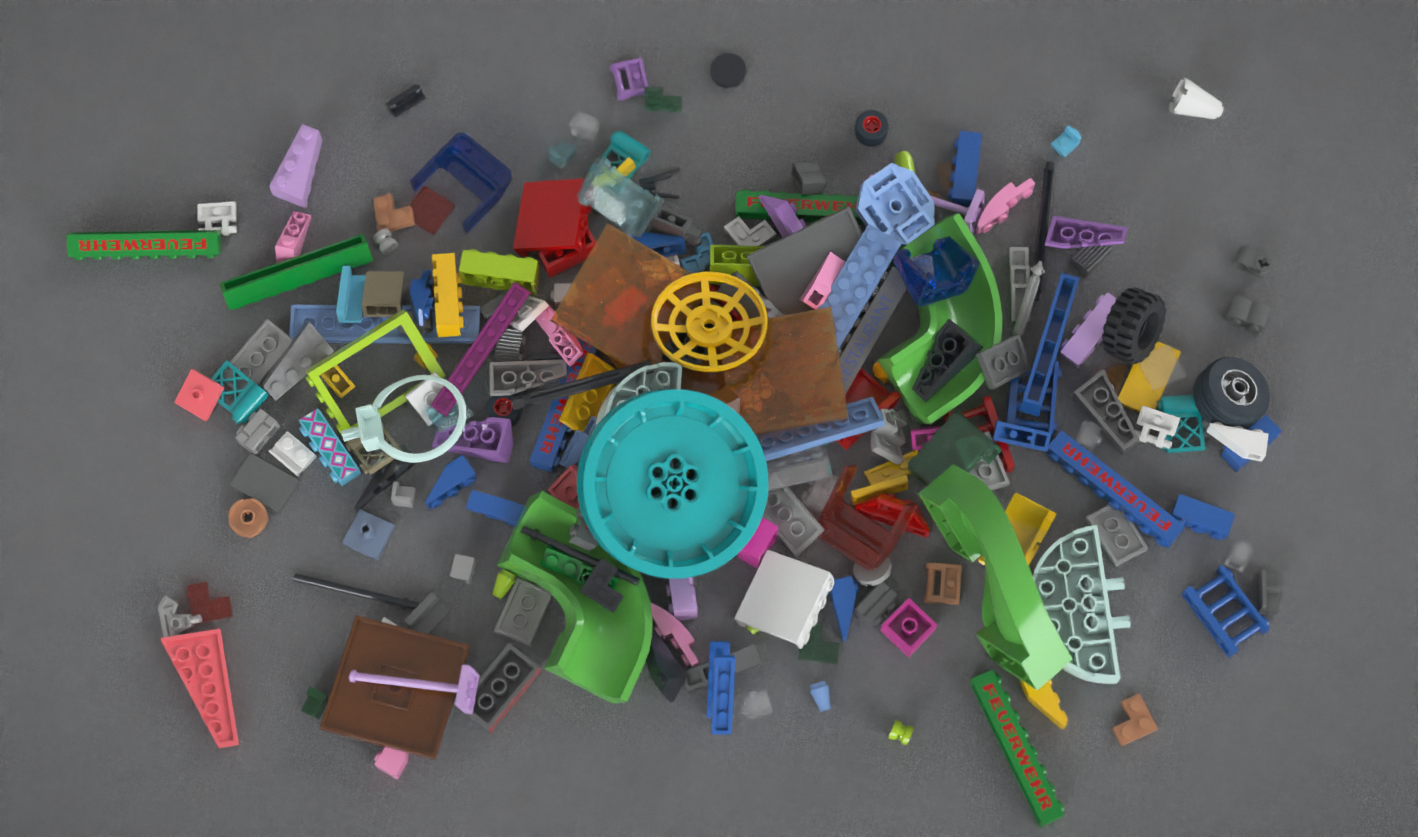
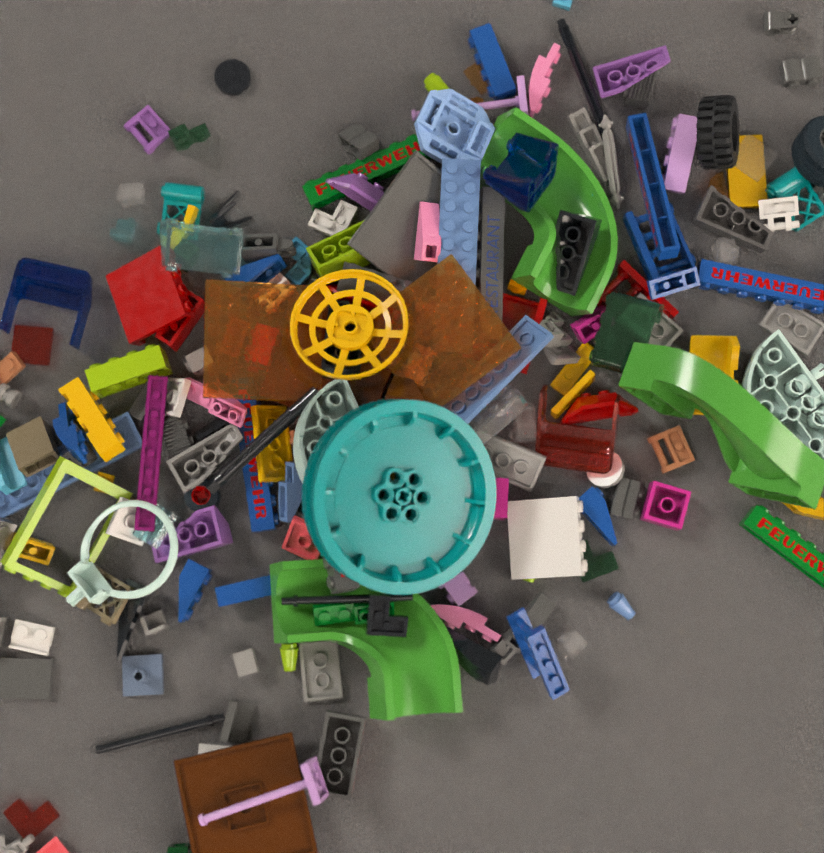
camera: 30 degrees left, 10 degrees up
(250, 528) = (15, 727): nougat plate -> none
(329, 446) = (61, 613): brick -> none
(872, 121) = (389, 60): black wheel -> none
(901, 732) = (707, 601): lime wheel -> none
(1004, 361) = (623, 223): dark grey tile -> none

